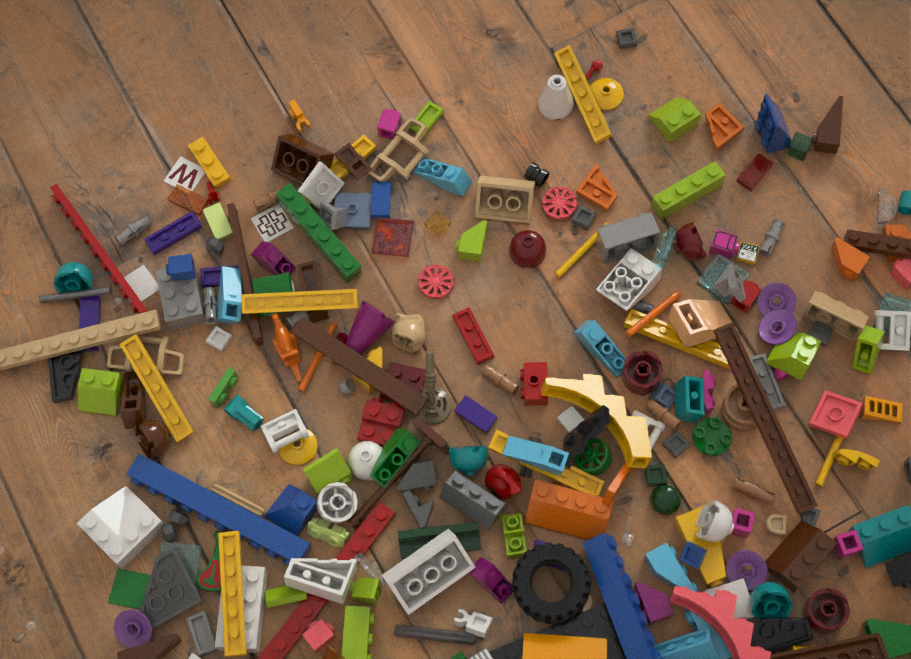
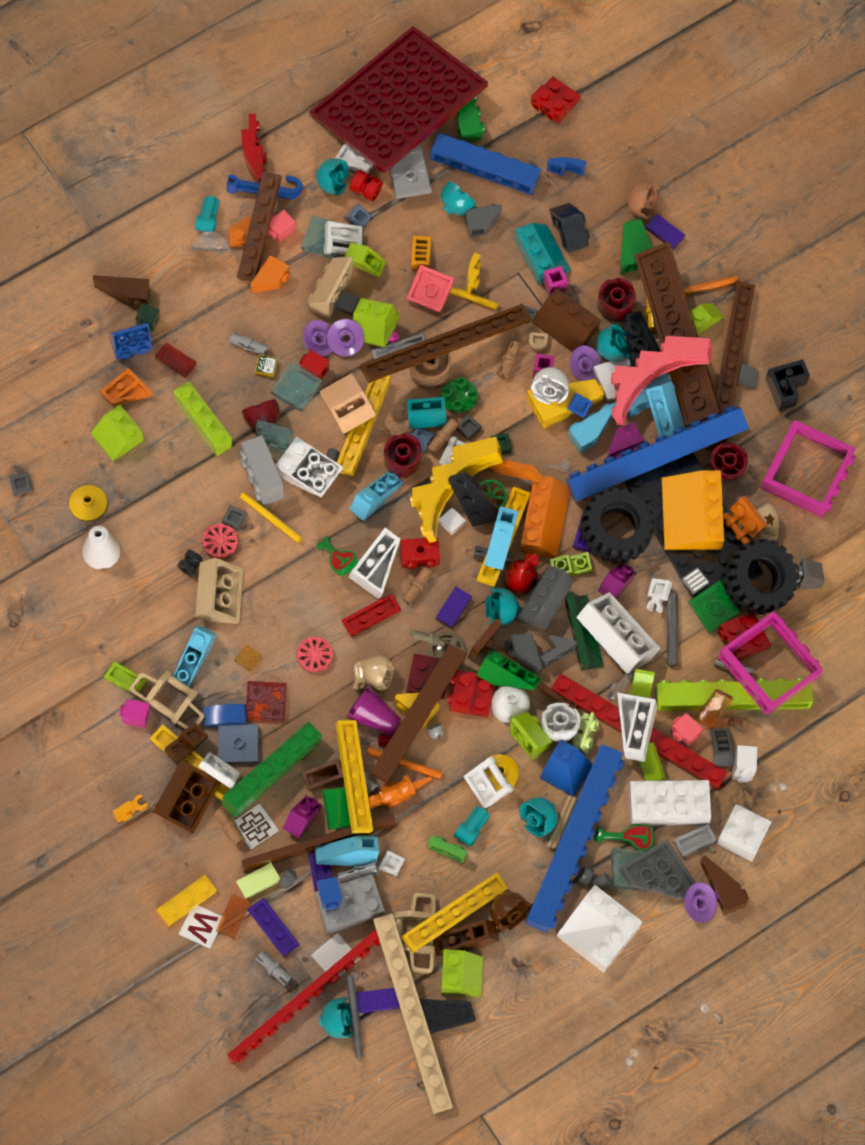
camera: 105 degrees left, 0 degrees up
(129, 588) = (658, 917): green sticker -> none
(212, 195) = (227, 889): red hand -> none
(232, 594) = (662, 802): yellow plate -> none
(244, 477) = (539, 815): none -> teal cylinder
(333, 216) = (252, 757): light grey slope -> none
(472, 242) = (270, 619): lime slope -> none
(523, 340) = (376, 563): none -> white wedge
(525, 304) = (340, 561): none -> green piece
(527, 249) = (273, 568): dark red cylinder -> none
(583, 94) = (102, 517): yellow plate -> none
(596, 65) = (56, 513): red hand -> none
(597, 189) = (204, 504): orange wing -> none
(652, 314) = (340, 447): orange bar -> none
(665, 499) = (523, 435): dark green hair -> none
(708, 385) = (401, 399): dark pink slope -> none
(724, 244) = (260, 385): dark pink brick -> none
(731, 283) = (306, 374): light grey slope -> none

